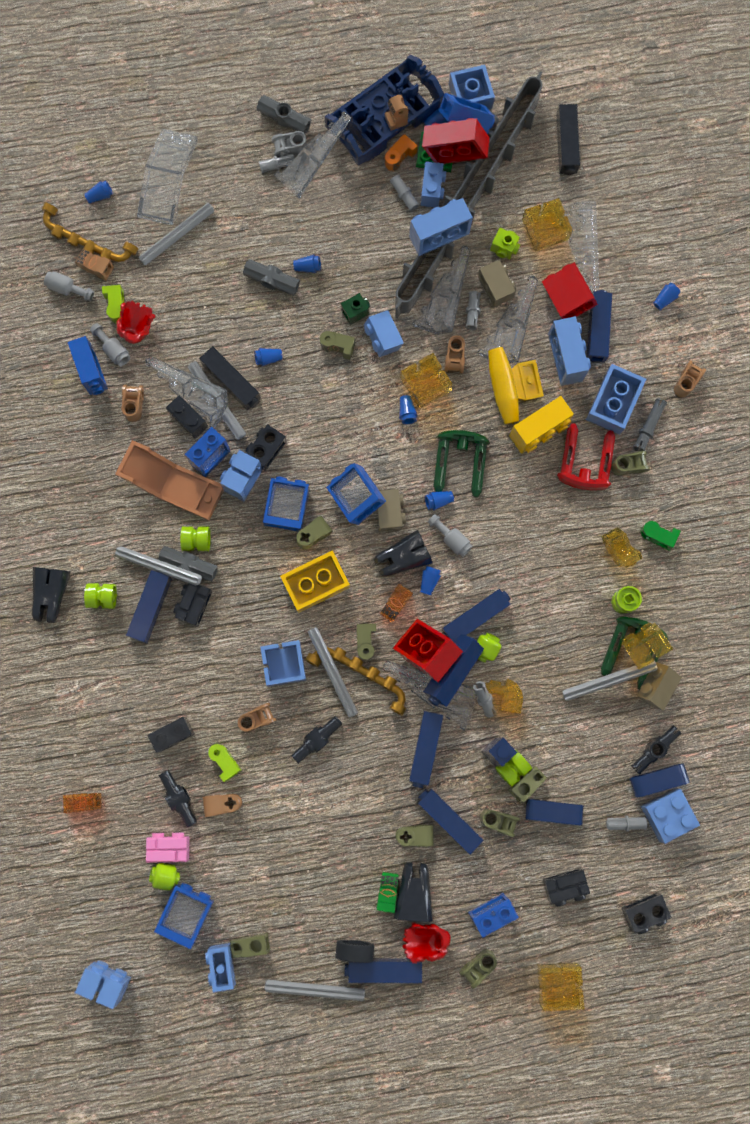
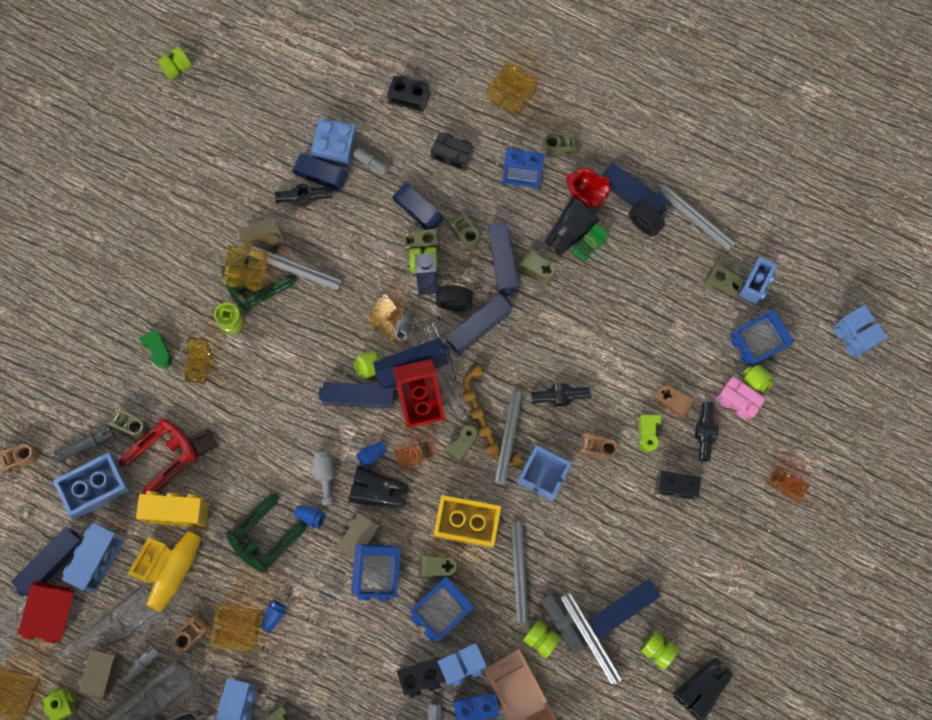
camera: 140 degrees left, 5 degrees down
(192, 604) = (585, 582): black brick -> none
(249, 577) = (519, 572): none -> light grey axle
(462, 753) = (454, 298): none -> black tyre
(563, 494) = (204, 442): none -> dark brown tile

